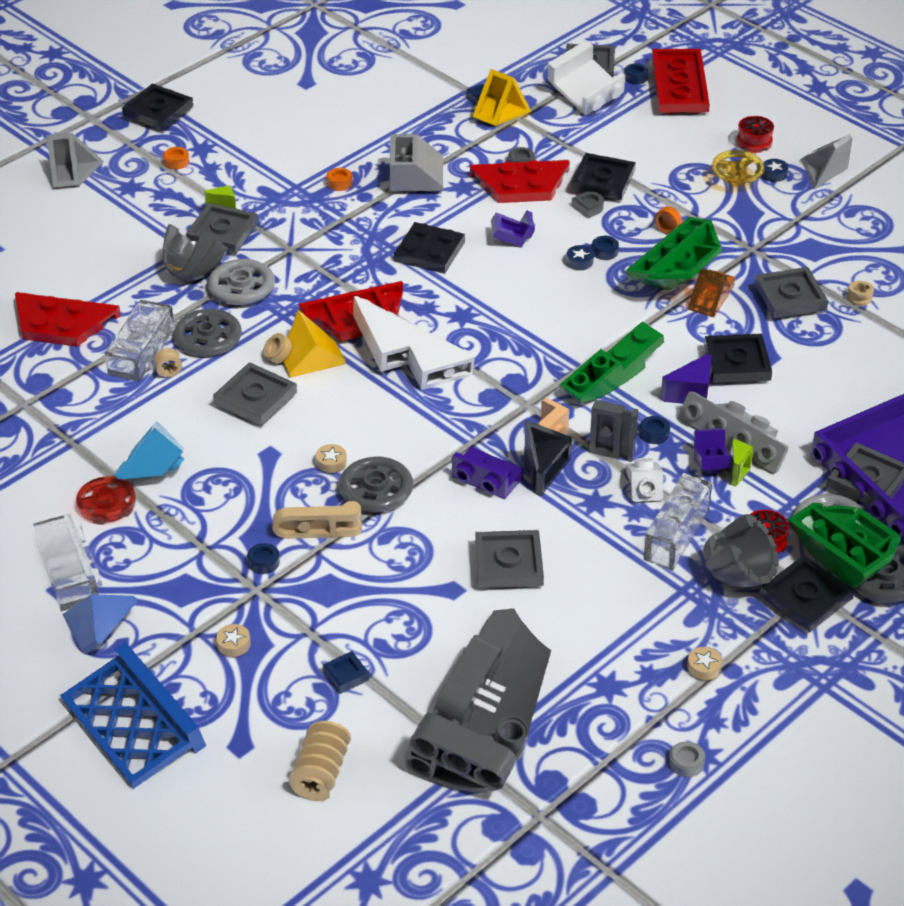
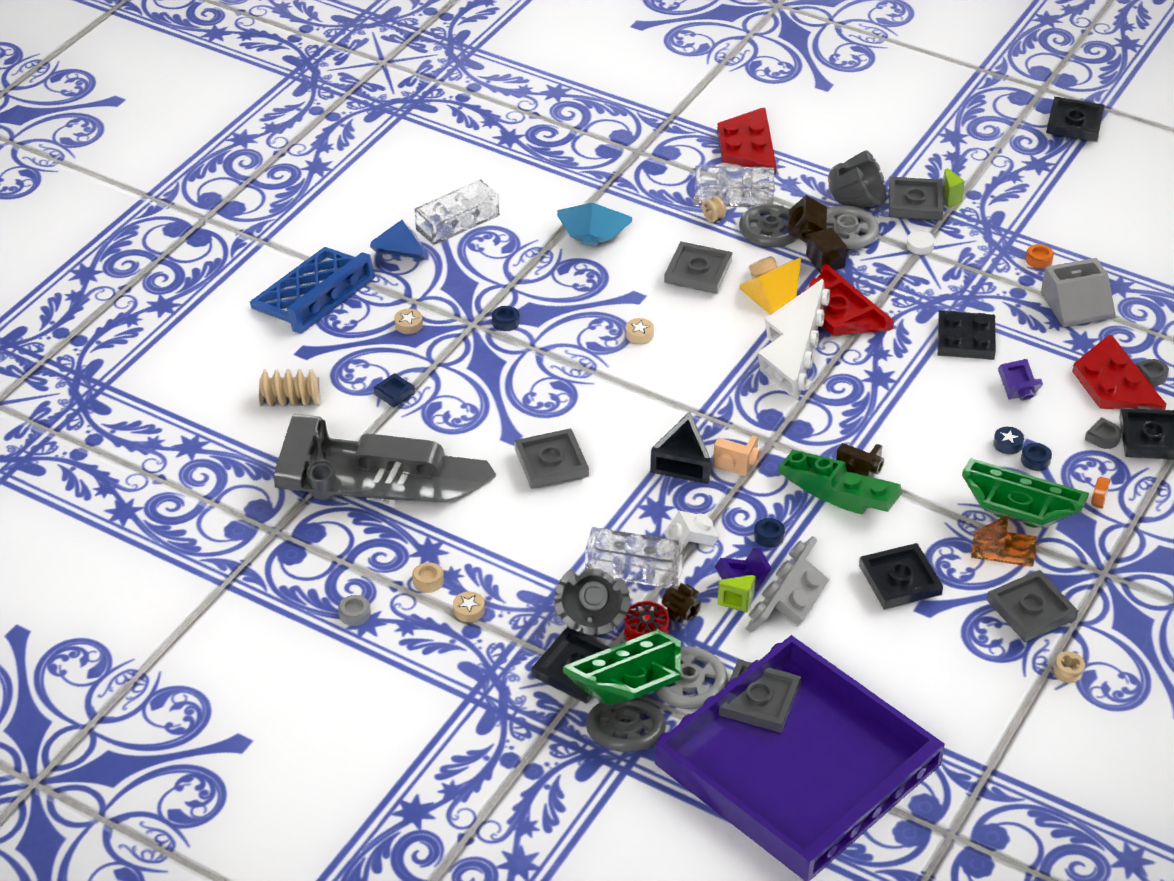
camera: 75 degrees right, 0 degrees up
(70, 160) = (956, 88): light grey slope -> none
(106, 503) = (539, 221): clear red wheel -> none
(176, 158) = (1009, 150): orange tile -> none
(219, 298) = (806, 217): none -> dark brown brick
(276, 300) = (826, 248): none -> dark brown brick
(283, 243) = (920, 242): none -> white tile
(318, 521) = (553, 336): tan plate -> none
(376, 483) = (615, 361): dark grey plate -> none
(486, 472) = (654, 422): dark purple bracket -> none
(589, 342) = (861, 461): none -> dark brown bracket
(613, 430) = (731, 493): dark grey plate -> none
(652, 690) = (428, 577): none -> tan tile
(688, 378) = (843, 544): dark purple slope -> none
(745, 499) = (681, 602): none -> dark brown gear

